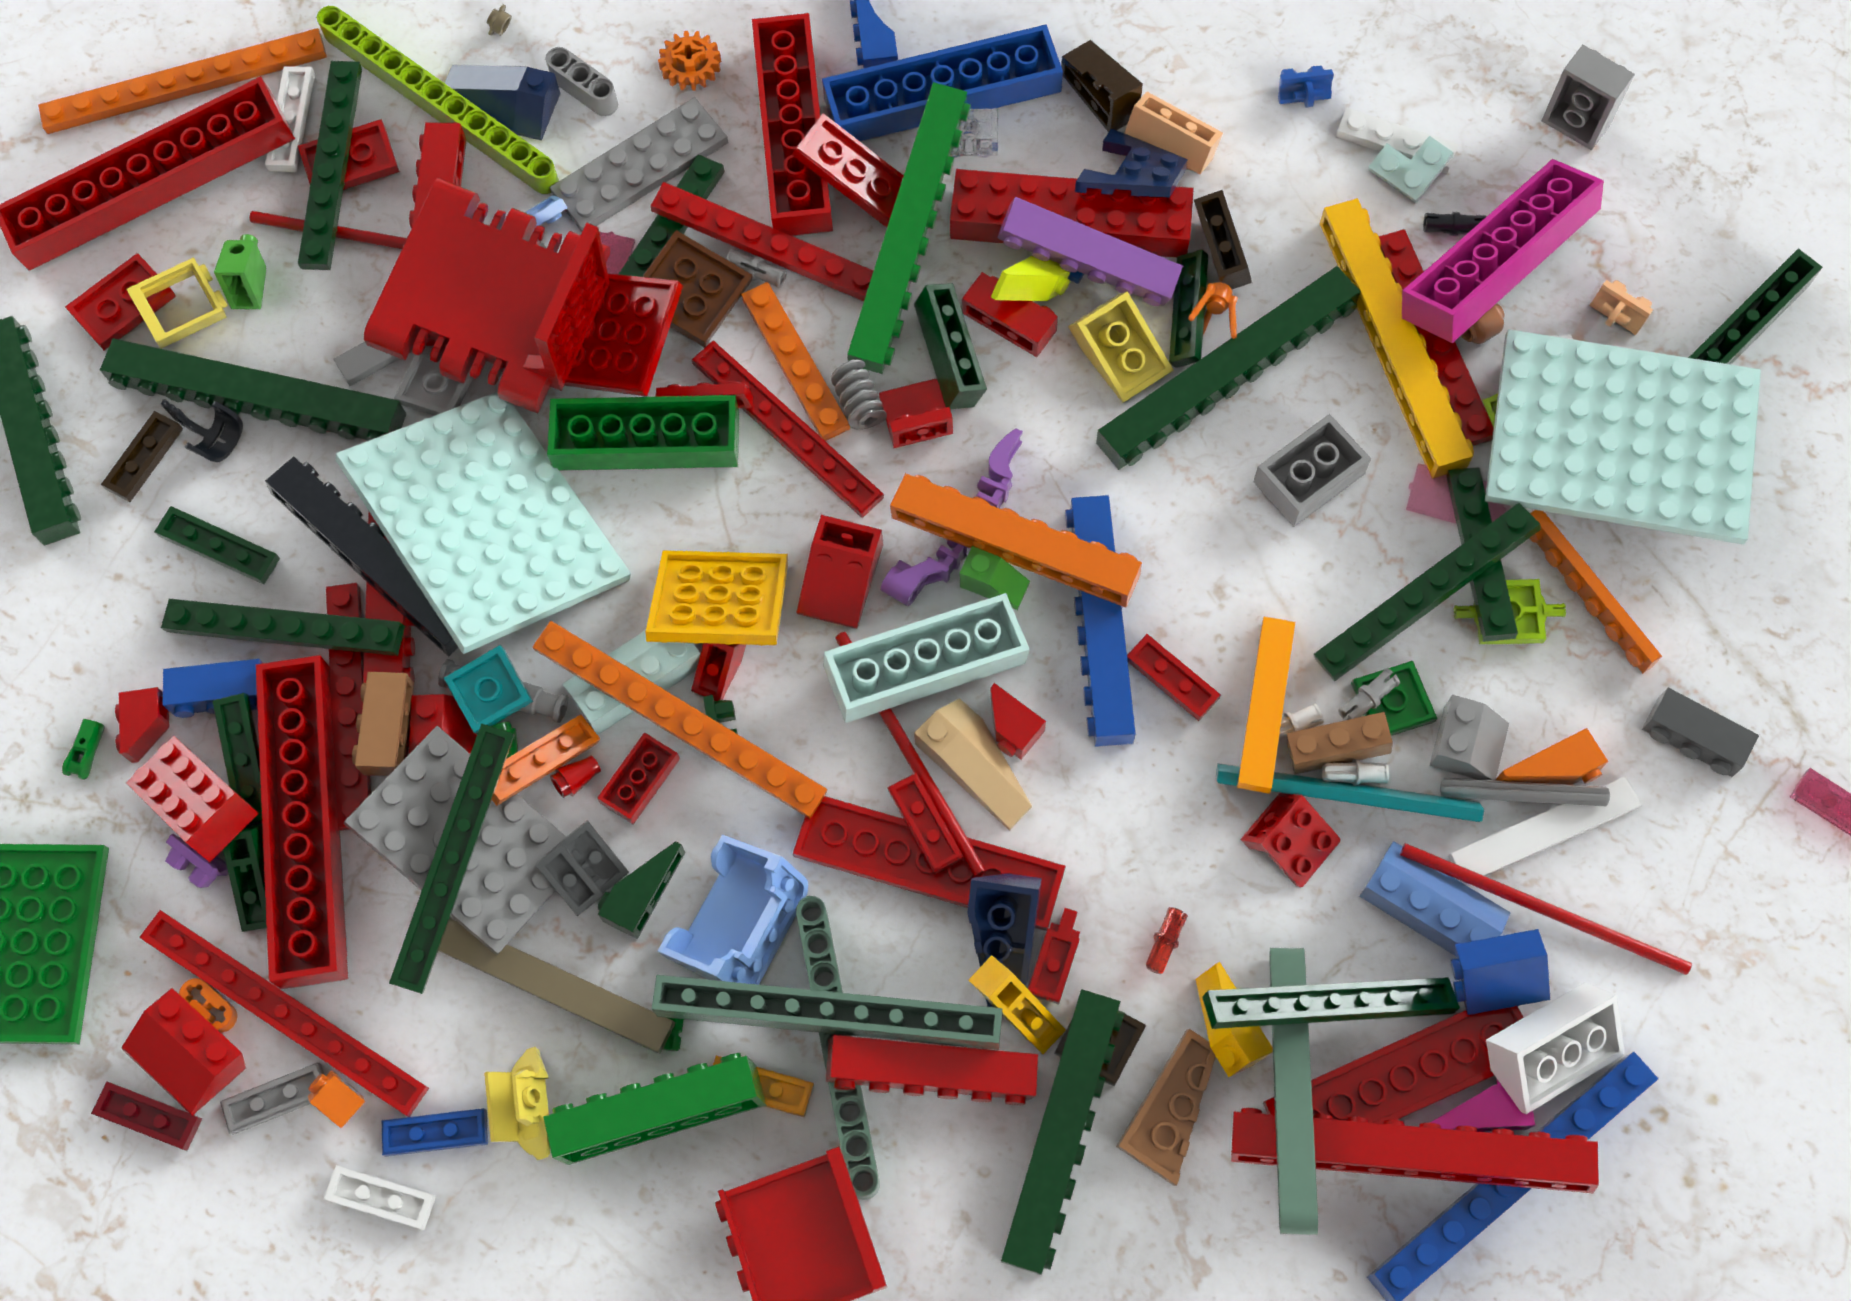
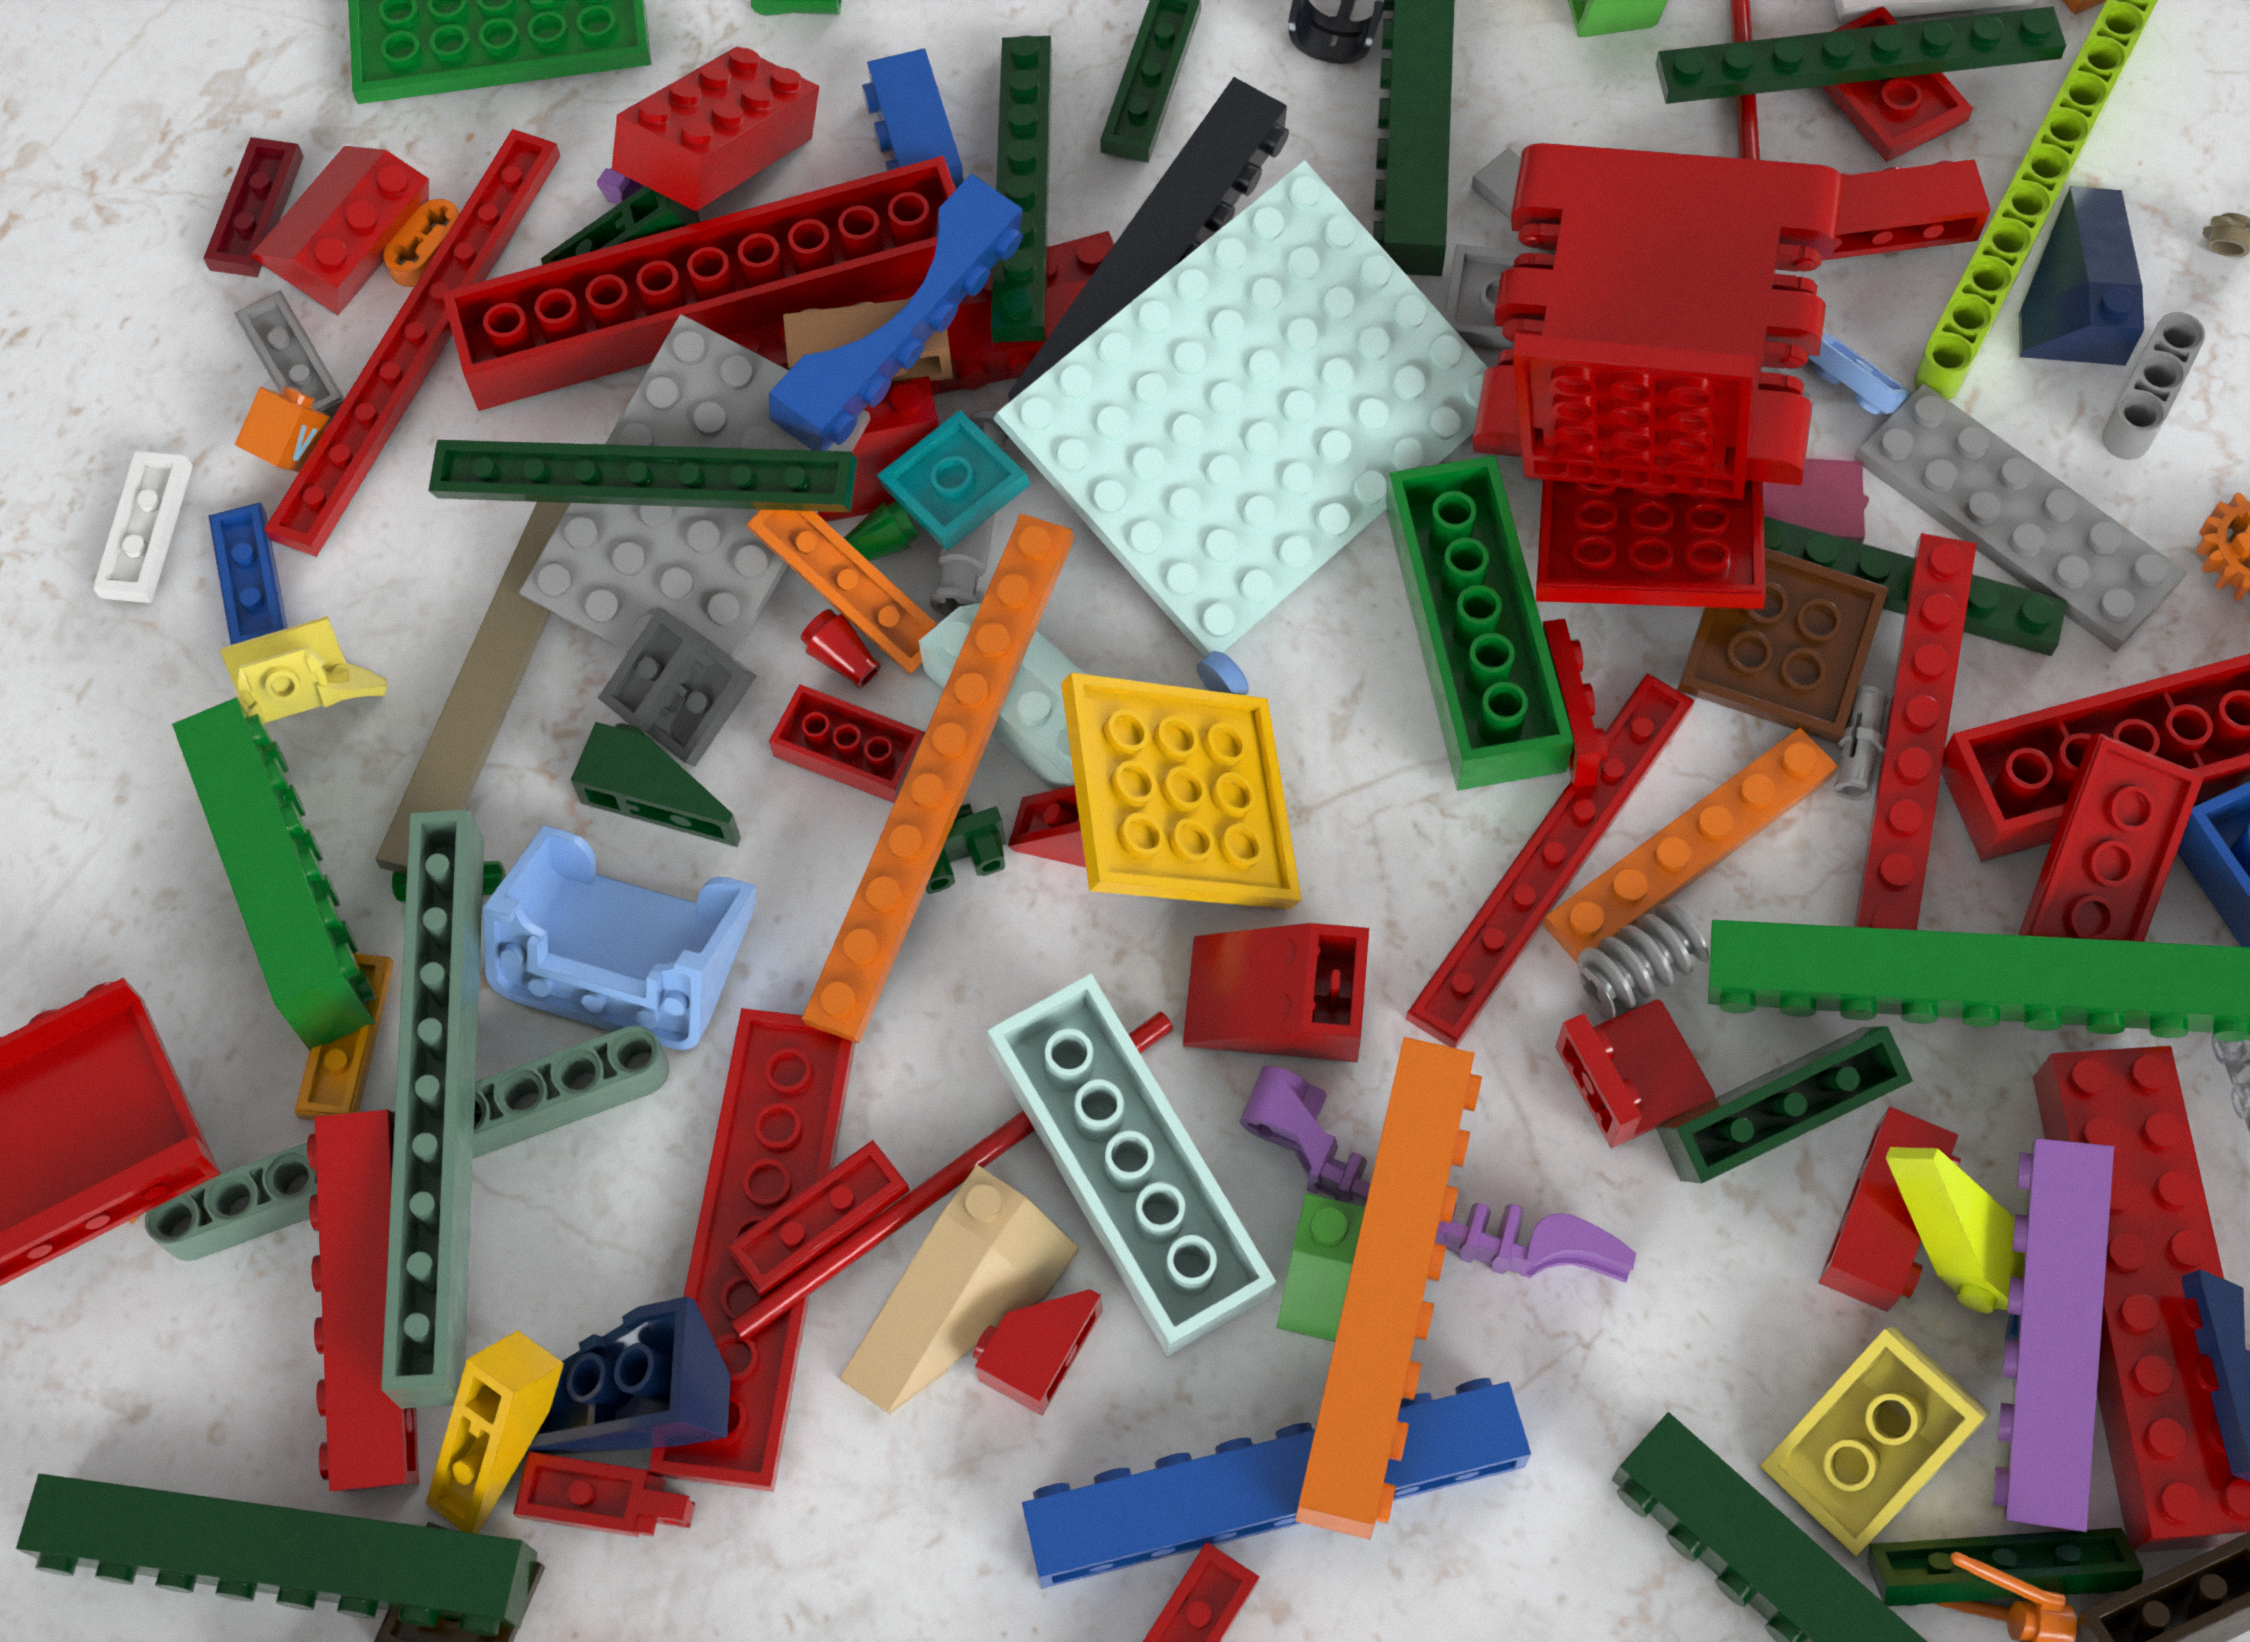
camera: 80 degrees right, 5 degrees down
(140, 721) = (840, 47): red slope -> none
(240, 748) = (845, 158): dark green plate -> none
(340, 648) = (831, 388): none -> blue arch
(644, 570) = (1222, 674): none -> medium blue tile

